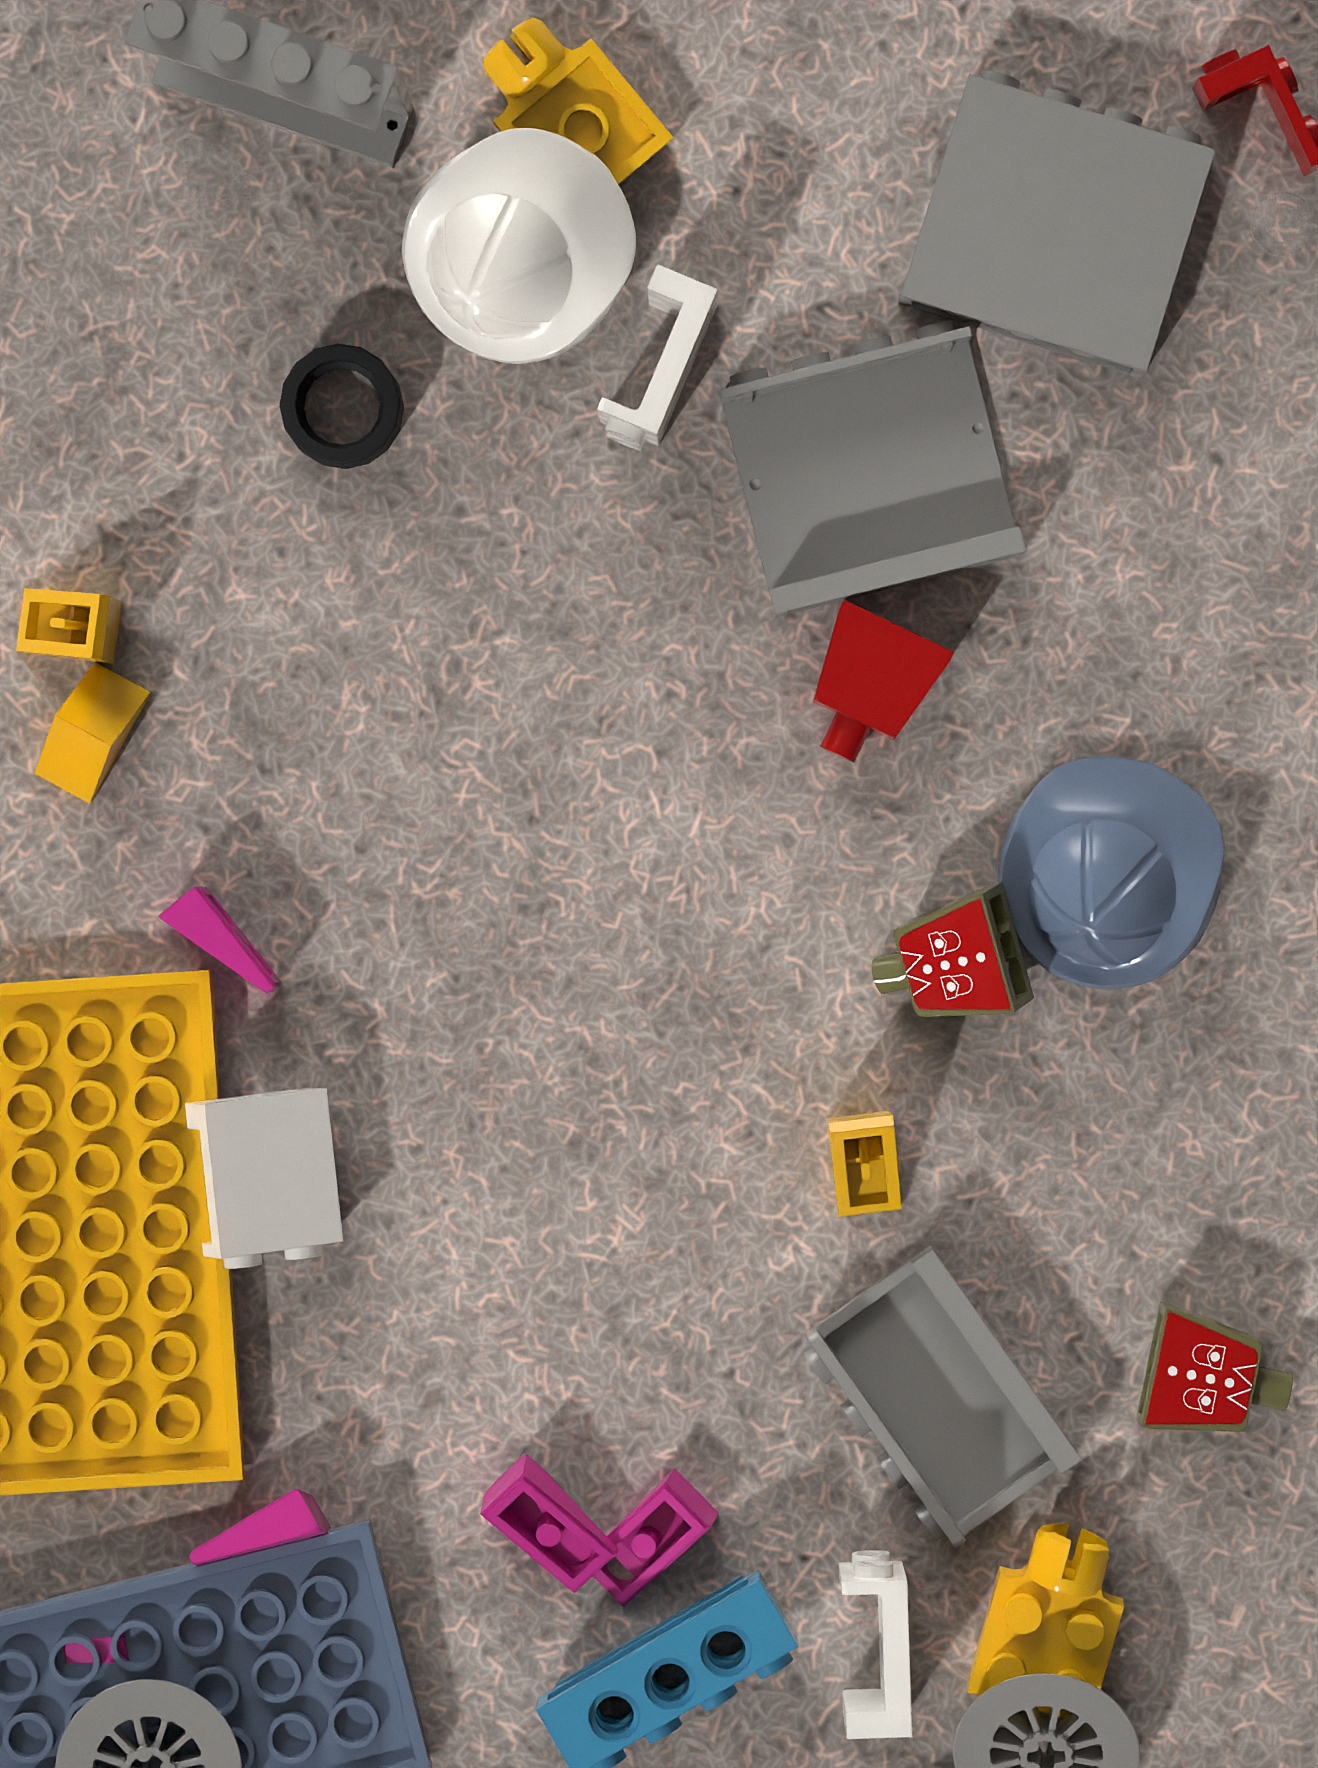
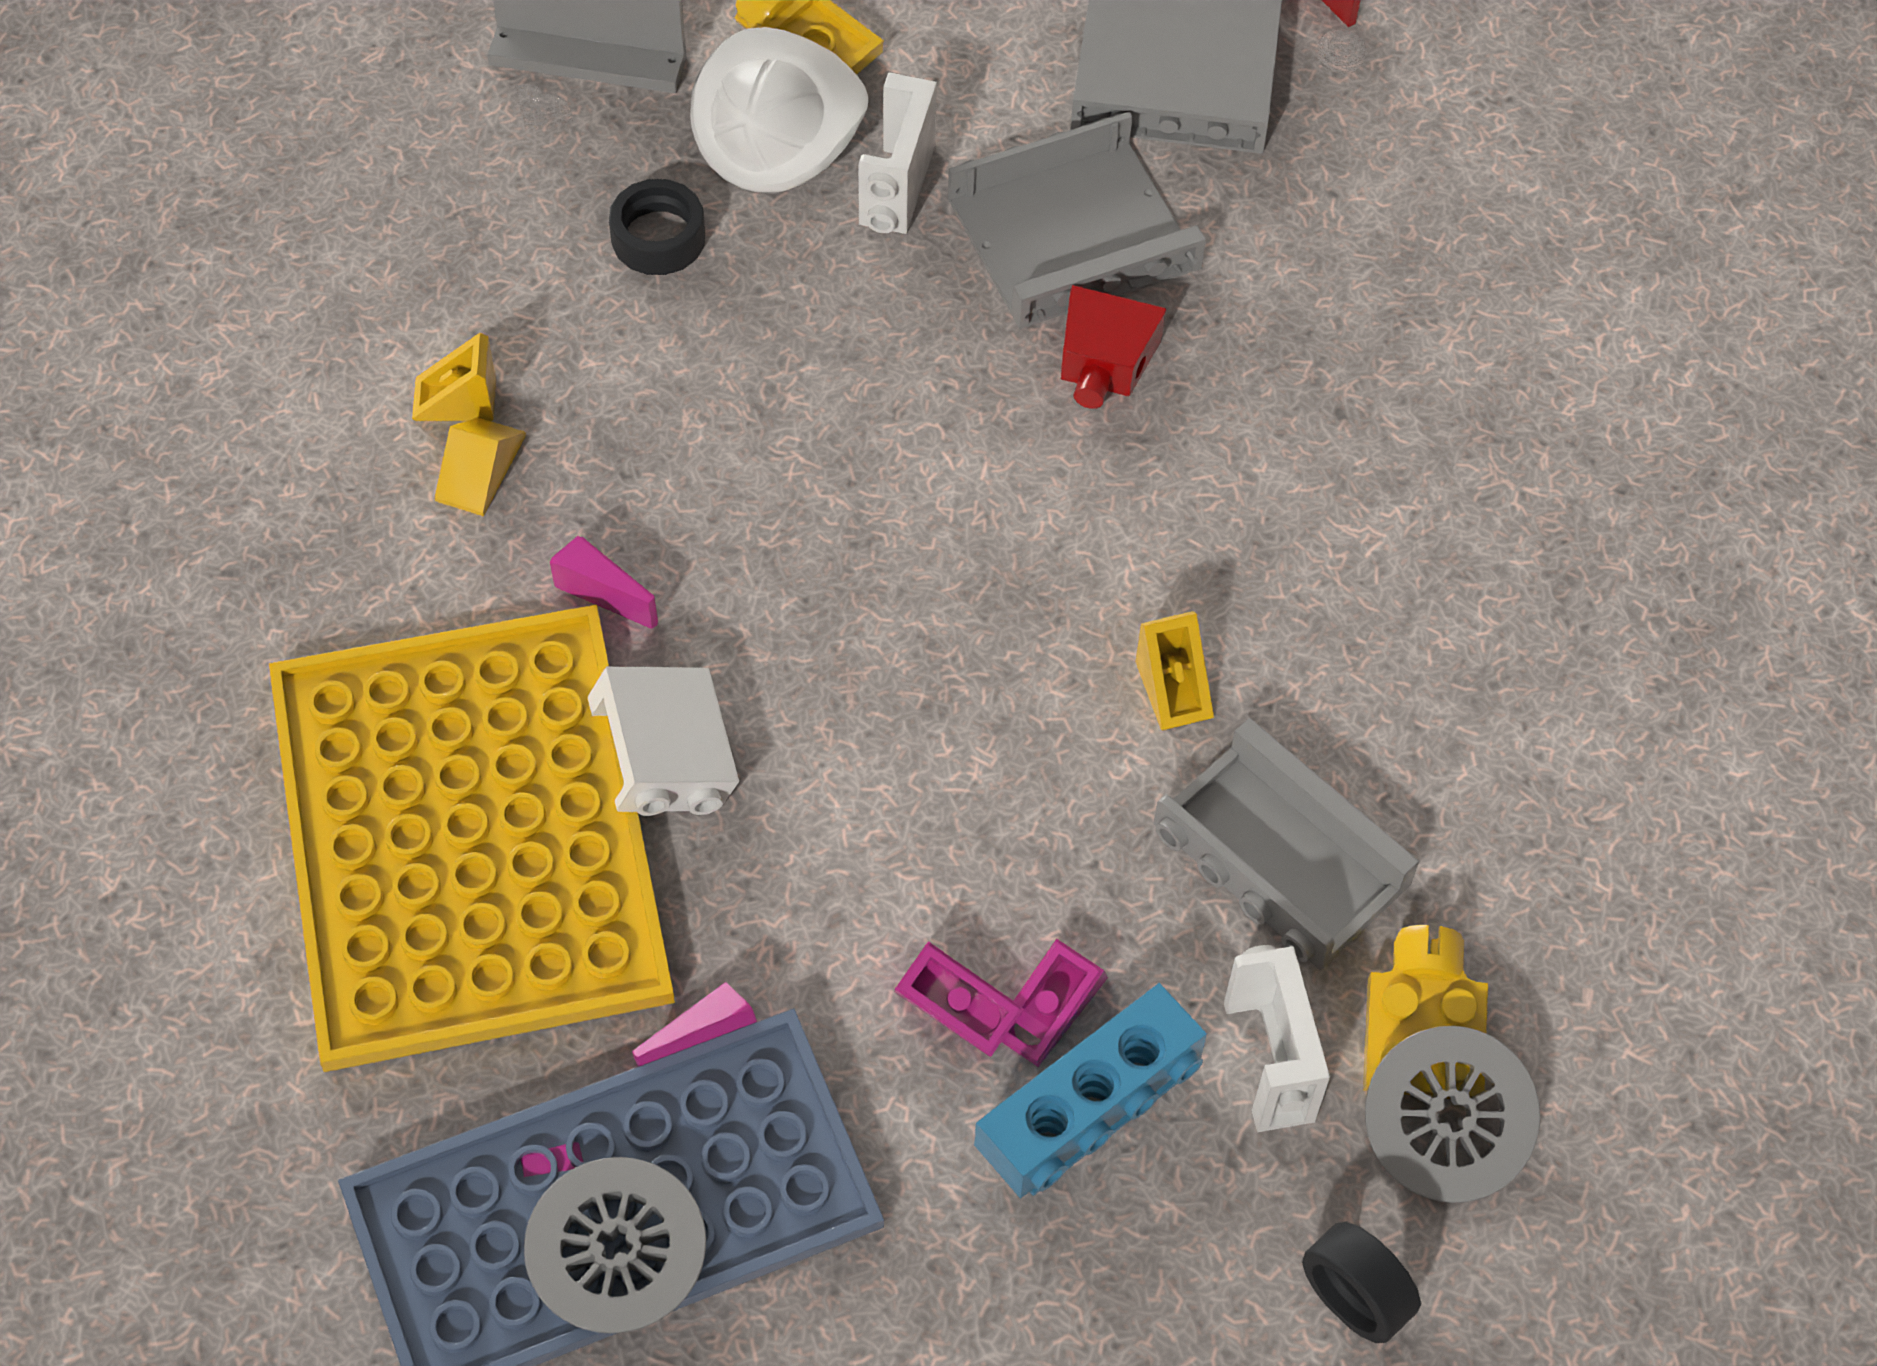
camera: 15 degrees left, 30 degrees down
(959, 959) = (1217, 513): torso -> none
(1111, 871) = (1324, 455): sand blue piece -> none
(1205, 1375) = (1505, 795): red torso -> none

